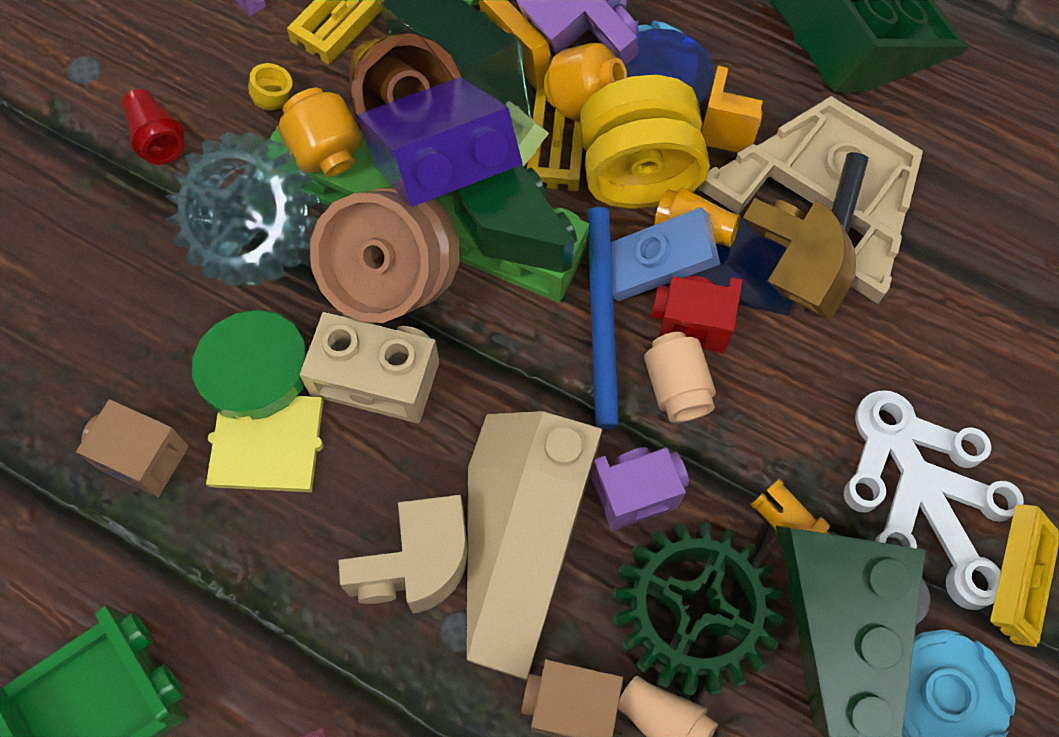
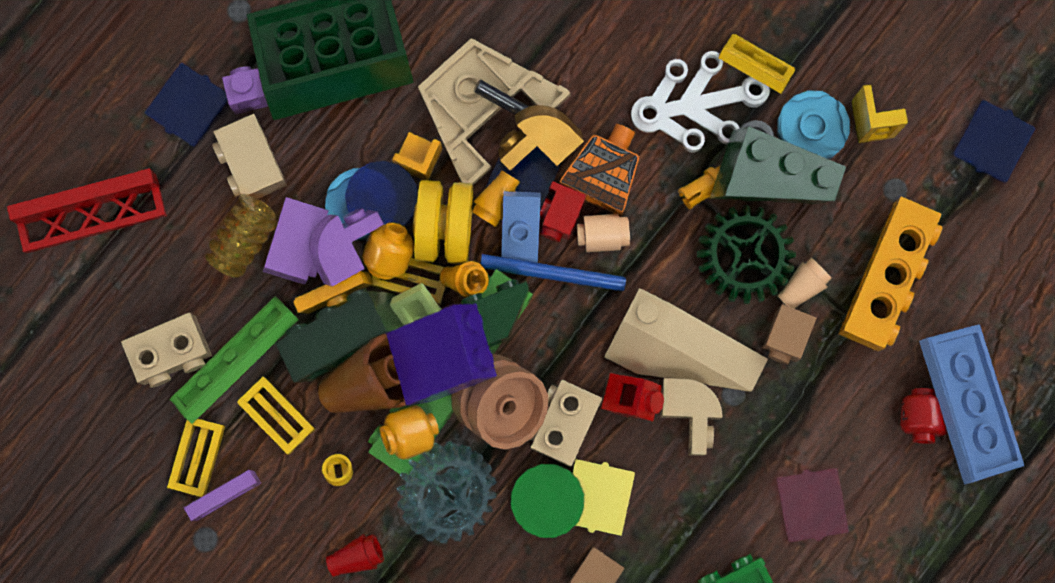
camera: 80 degrees left, 15 degrees up
(420, 468) = (640, 398): none -> red brick
(560, 199) = (465, 278): none -> light orange cone
(639, 485) = (669, 271): medium lavender brick -> none
(778, 363) = (604, 170): none -> torso

